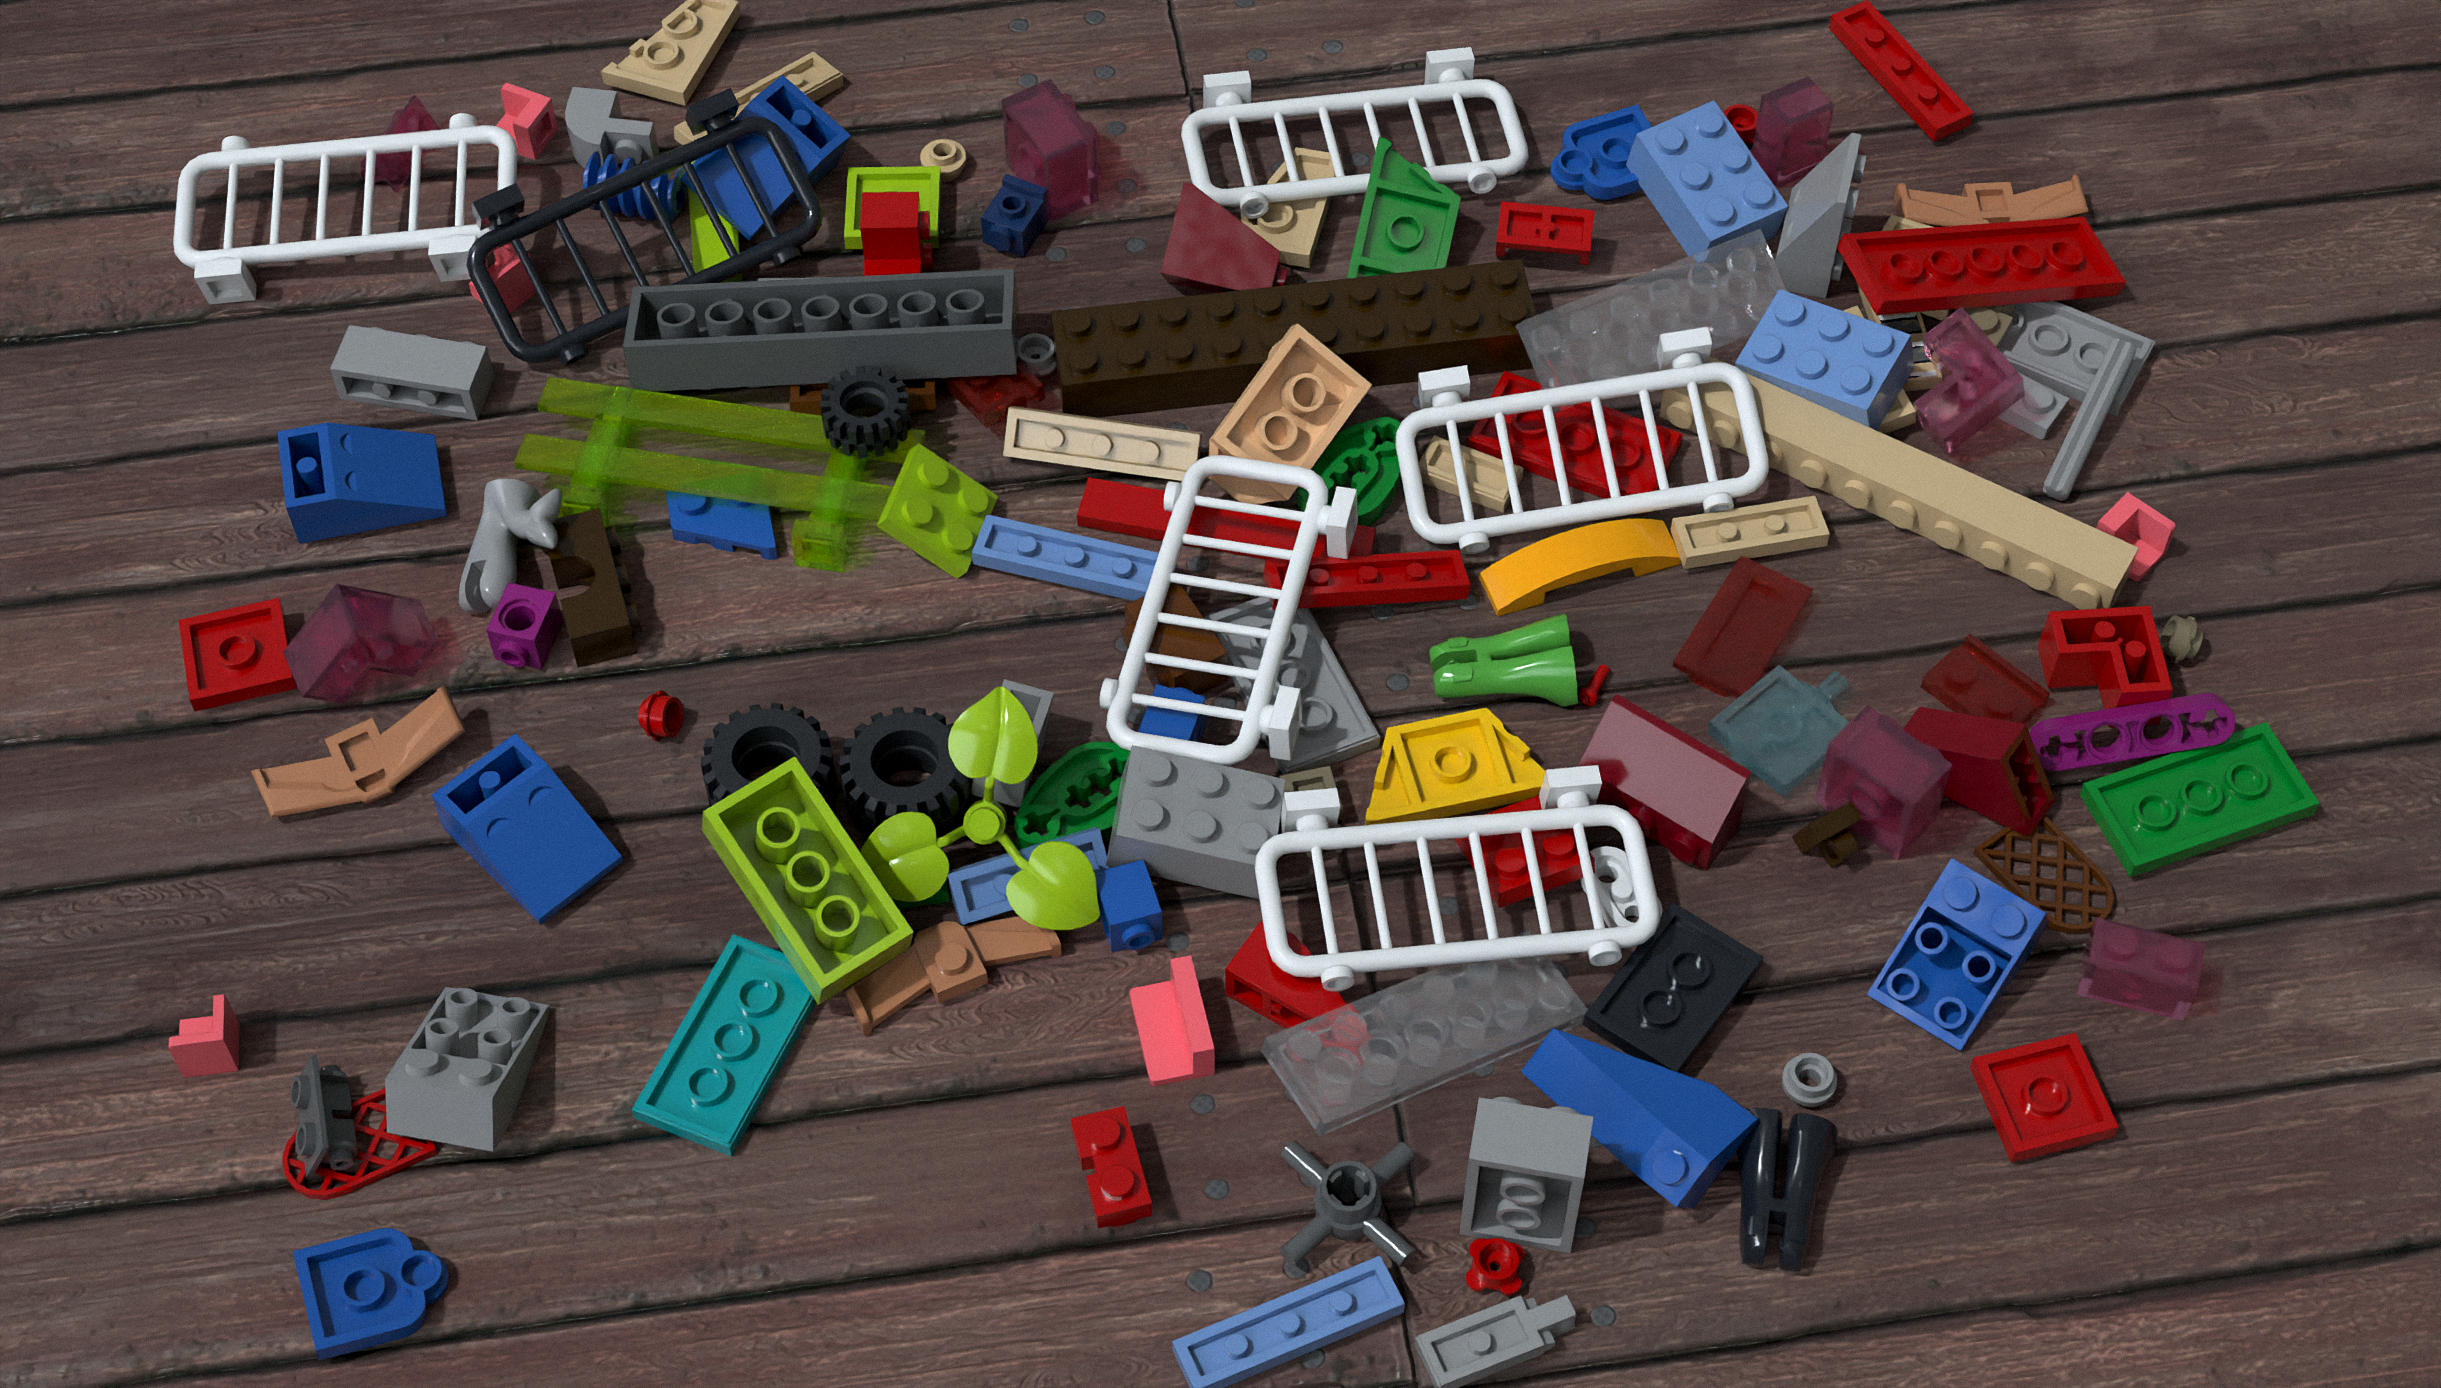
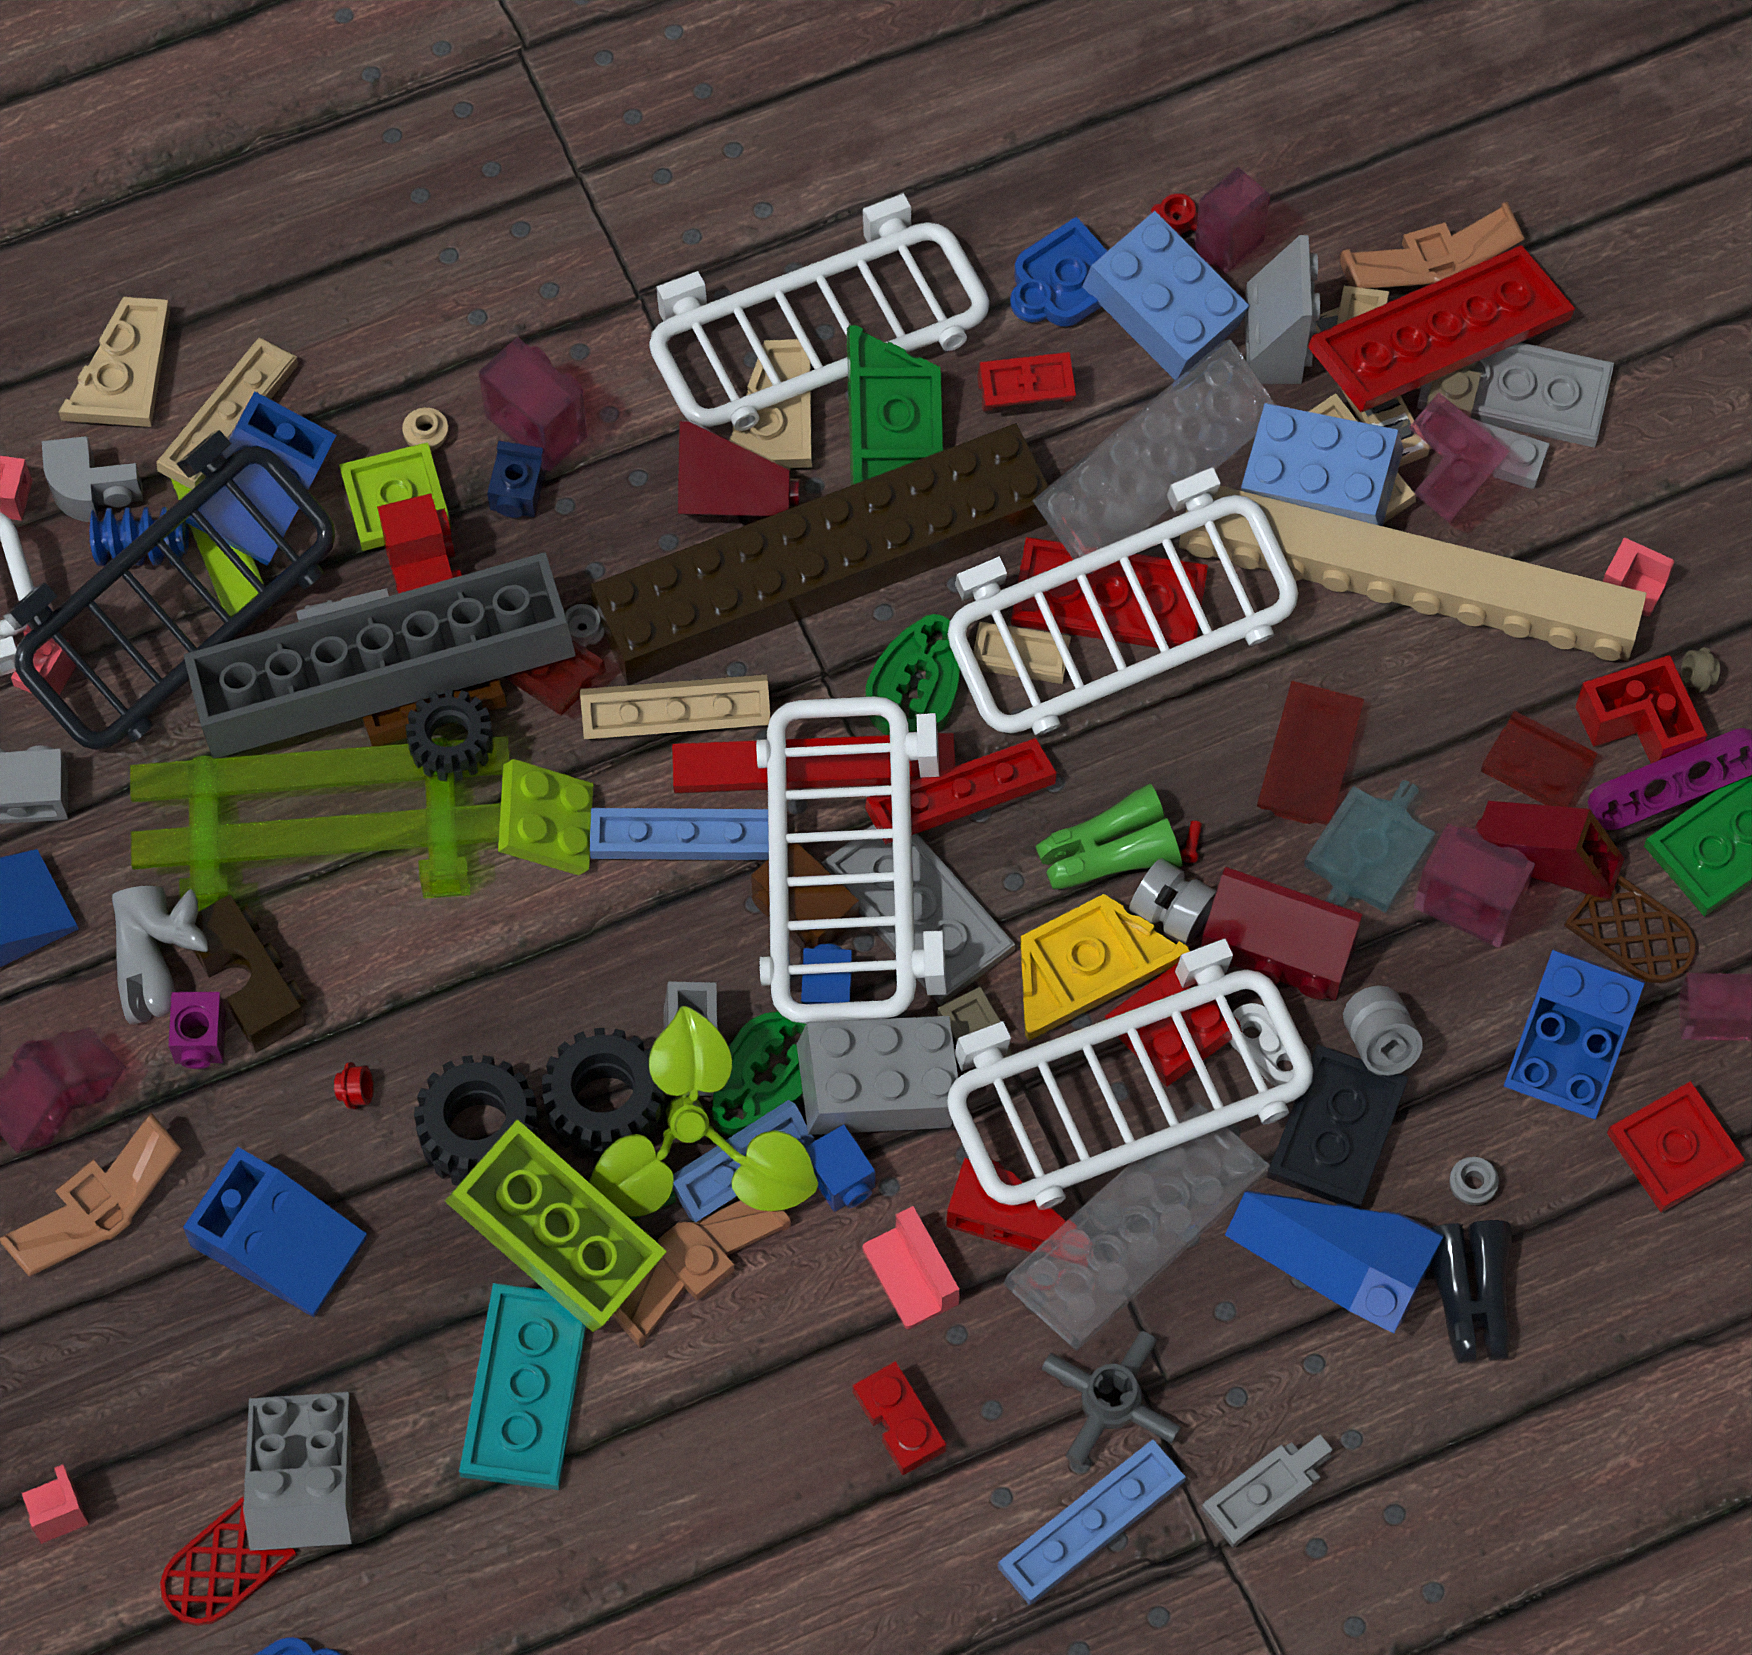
camera: 15 degrees left, 10 degrees up
(319, 1136) = (176, 1533): dark grey hinge -> none
(721, 523) = (343, 875): blue wing -> none
(1287, 413) = (845, 640): light nougat slope -> none
(1497, 1251) = (1256, 1408): red plate -> none
(1525, 1173) = (1262, 1340): light grey brick -> none
(1551, 724) = (1188, 909): none -> light grey wheel
(1576, 556) = (1144, 720): light orange slope -> none
(1746, 901) = (1382, 1030): none -> light grey wheel
(1749, 532) = (1293, 654): tan plate -> none
(1831, 834) = (1437, 942): dark brown tile -> none
(1901, 70) = (1314, 117): red plate -> none
(2089, 419) = (1572, 463): light grey axle -> none

